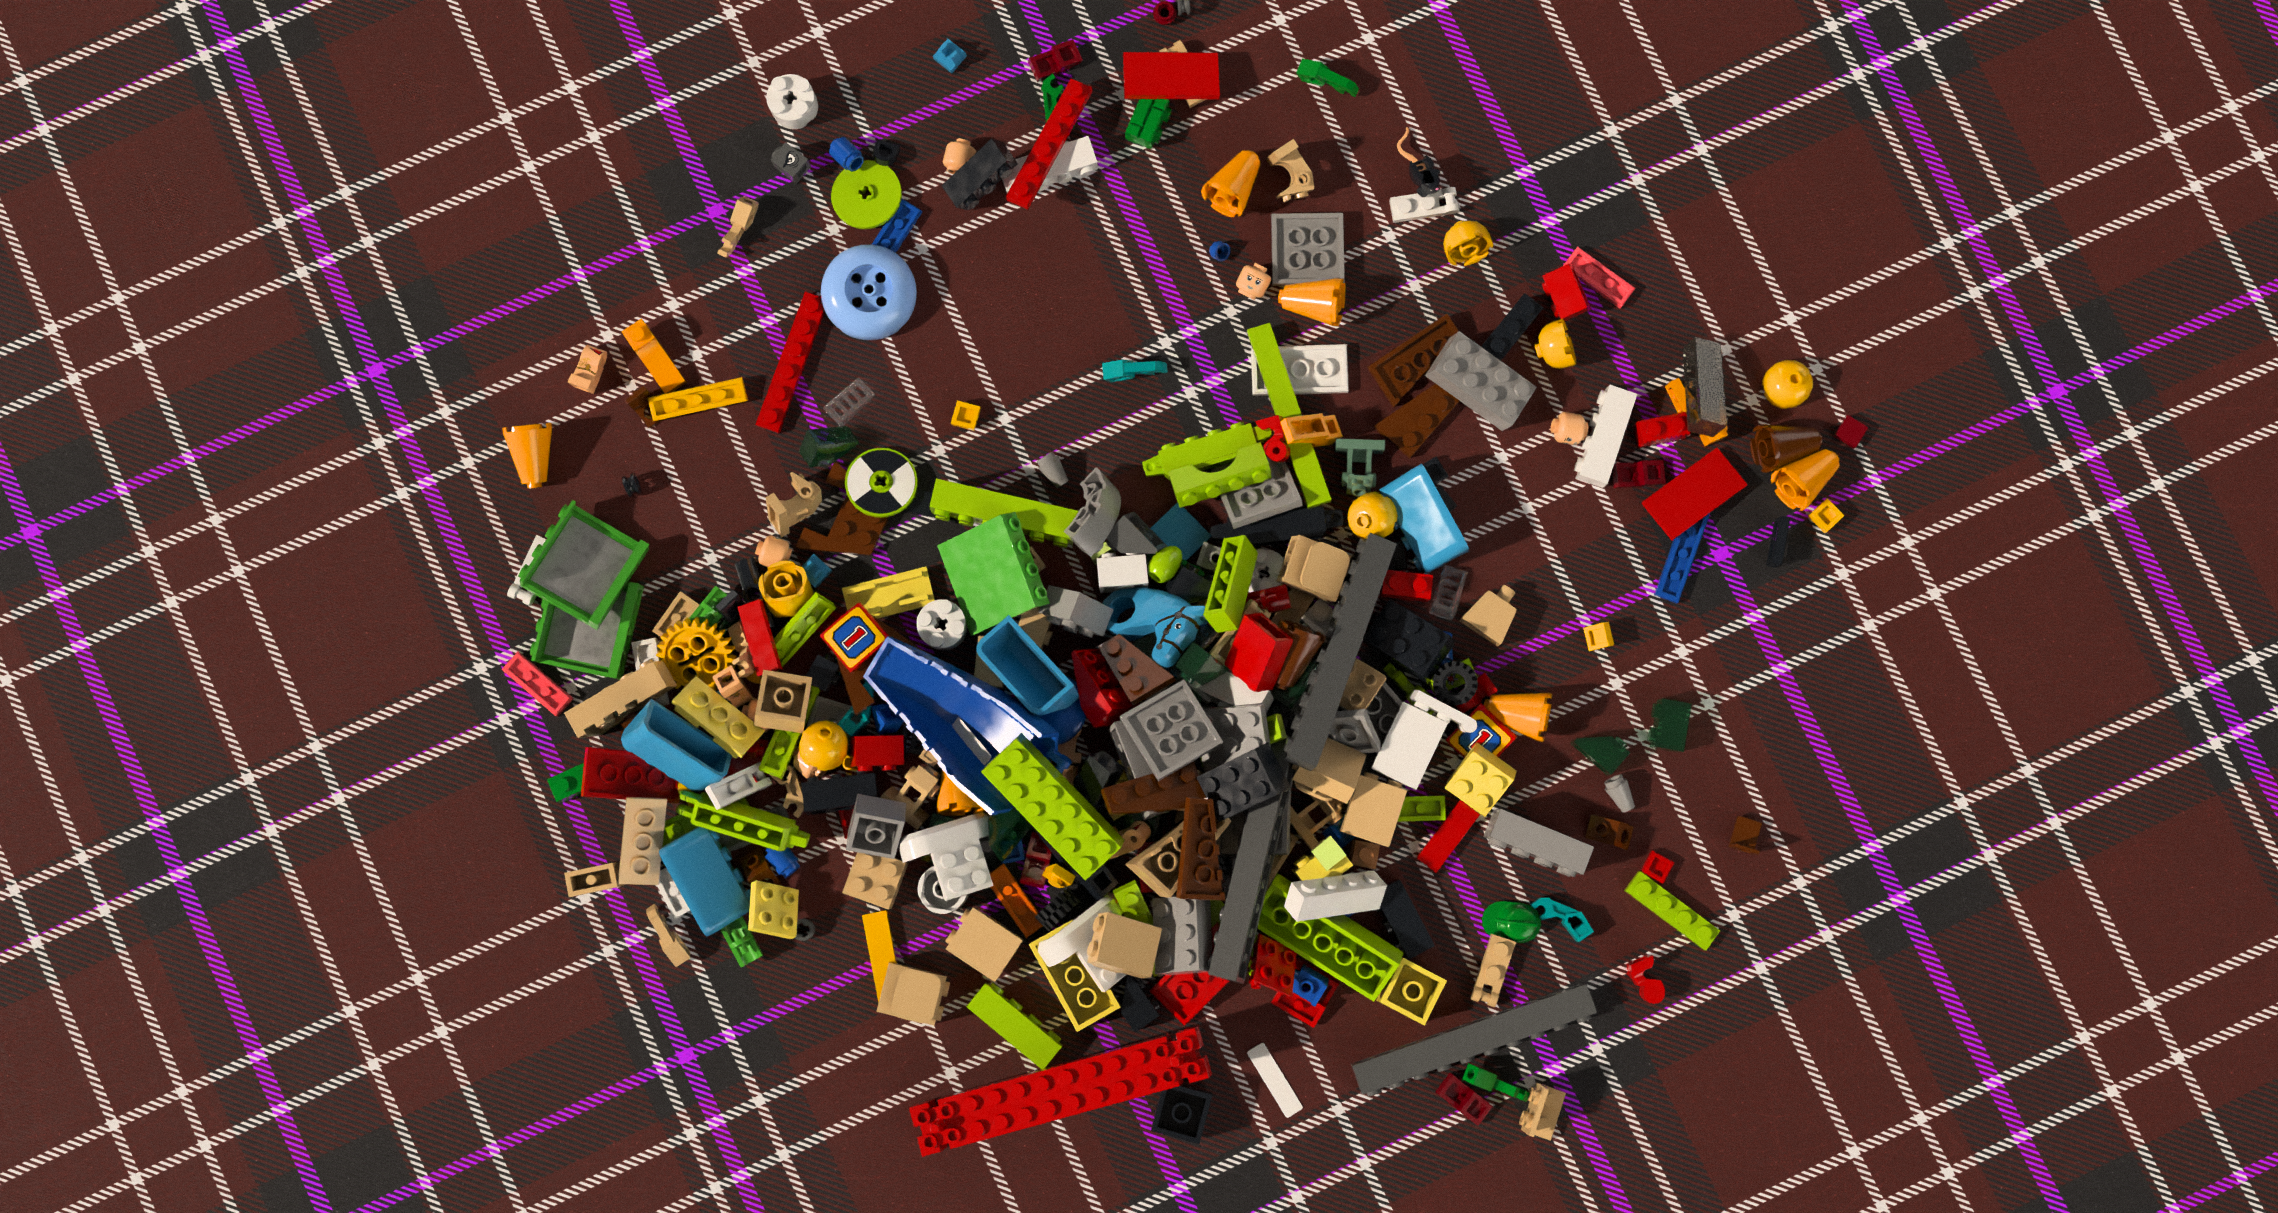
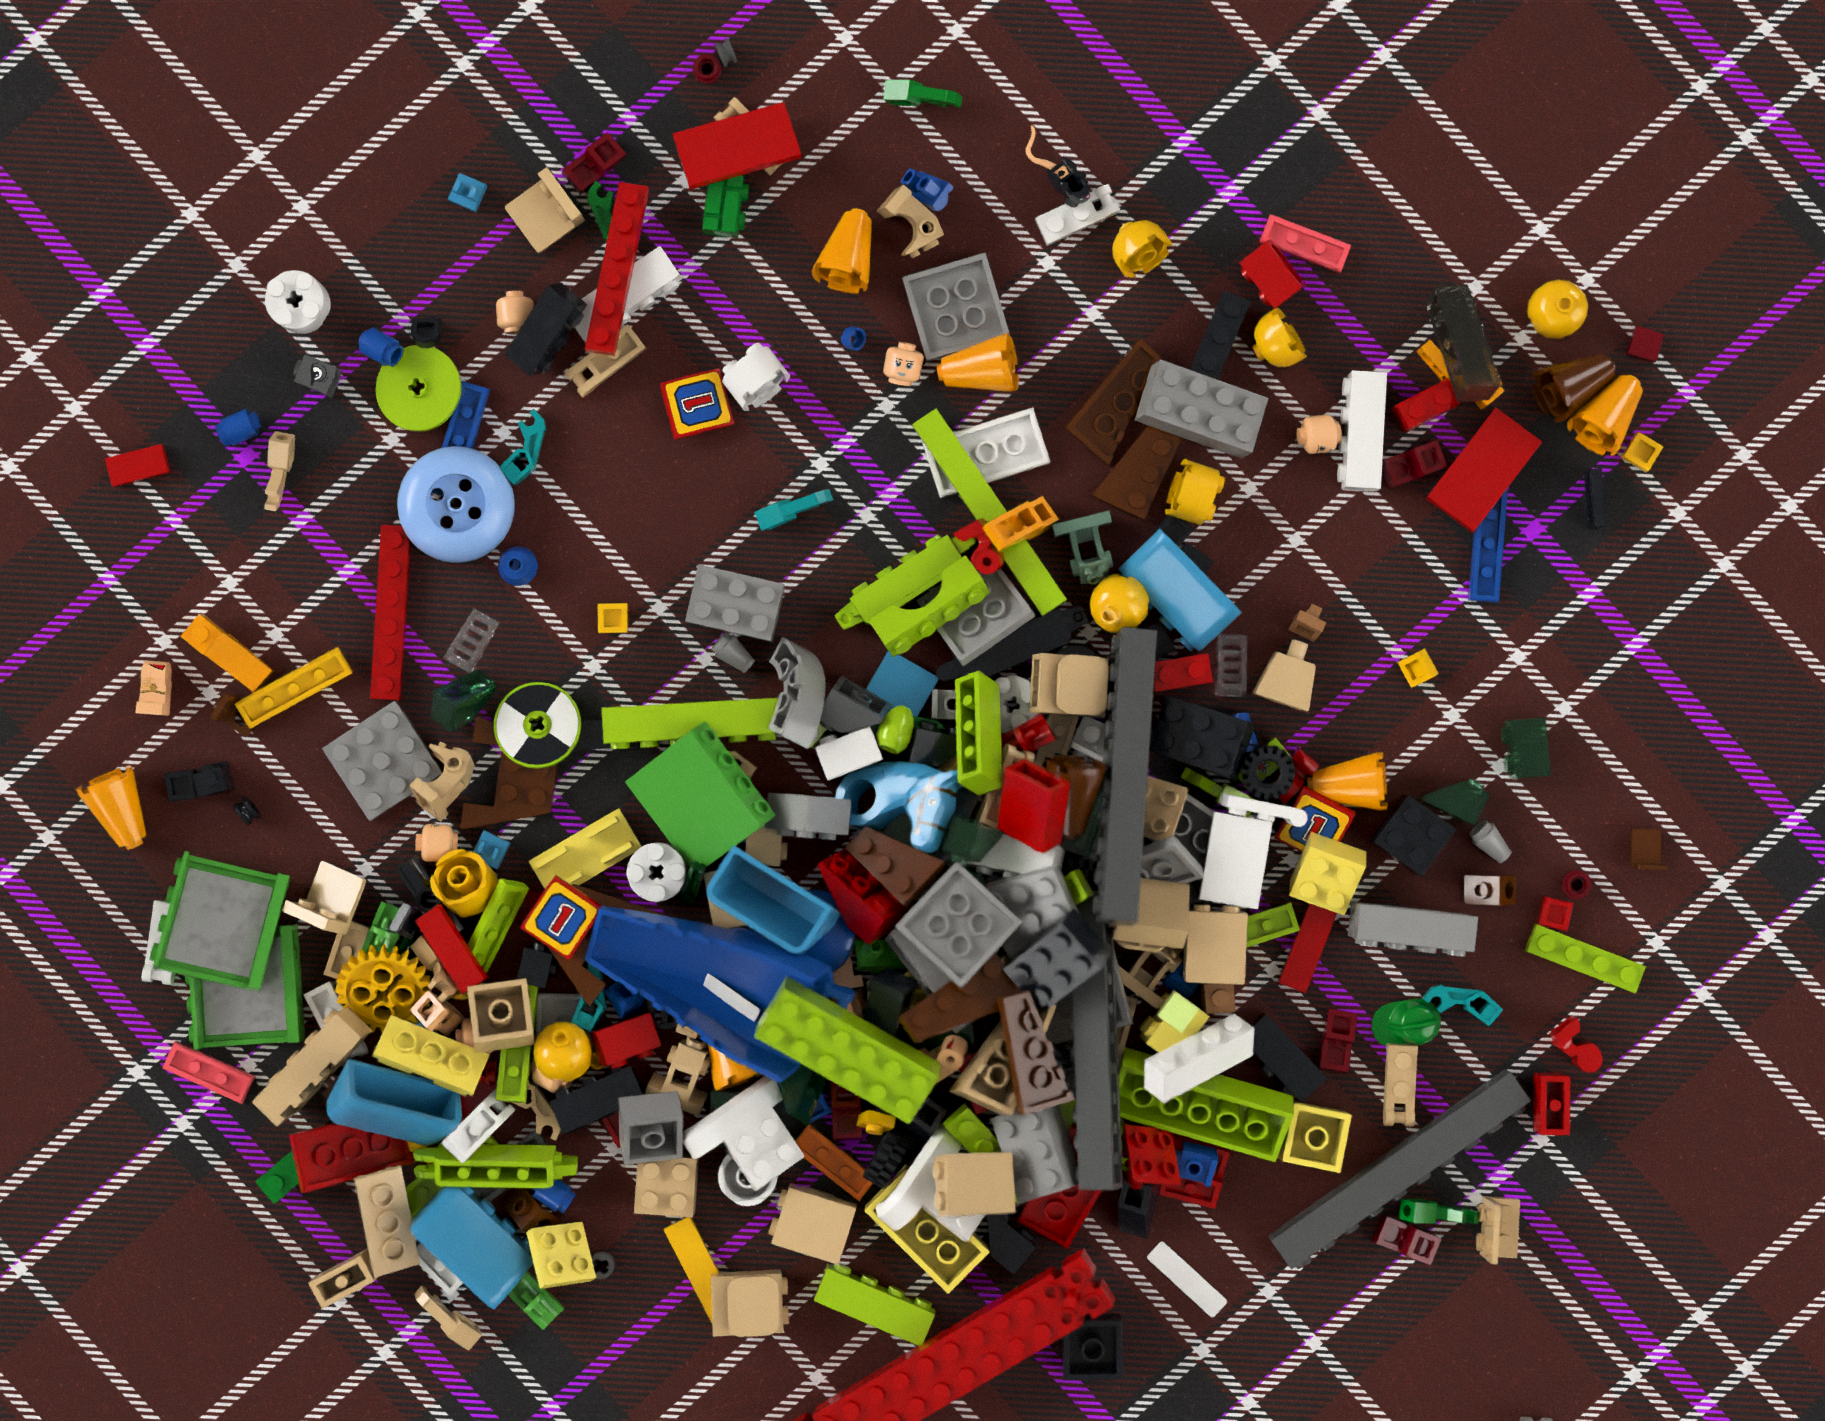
camera: 20 degrees left, 5 degrees up
(586, 451) = (180, 785): none -> black tile
(612, 452) = (213, 779): none -> black brick
(628, 193) = (137, 465): none -> red tile
(676, 572) = (330, 899): none -> bracket
(716, 185) = (238, 427): none -> blue brick
(748, 474) = (382, 760): none -> light grey plate
(896, 355) = (513, 574): none -> blue cone
(941, 265) = (532, 445): none -> teal piece
(967, 642) = (692, 883): none -> dark green axle
(1006, 86) = (544, 212): none -> tan bracket
(1018, 216) = (603, 365): none -> tan plate
(1066, 430) = (735, 603): none -> light grey brick
(1081, 267) = (696, 404): none -> slope
(1096, 740) = (876, 956): none -> bright green hips
(1133, 257) = (754, 376): none -> white brick
(1251, 1007) = (1137, 1208): none -> black slope
(1312, 151) = (927, 189): none -> blue hips
(1451, 919) = (1337, 1041): none -> dark red slope
(1456, 445) = (1194, 492): none -> yellow brick
(1519, 576) = (1307, 623): none -> medium nougat tile
(1558, 769) = (1412, 835): none -> black brick
(1613, 1020) = (1551, 1103): none -> red brick
(1688, 848) = (1585, 886): none -> dark red plate

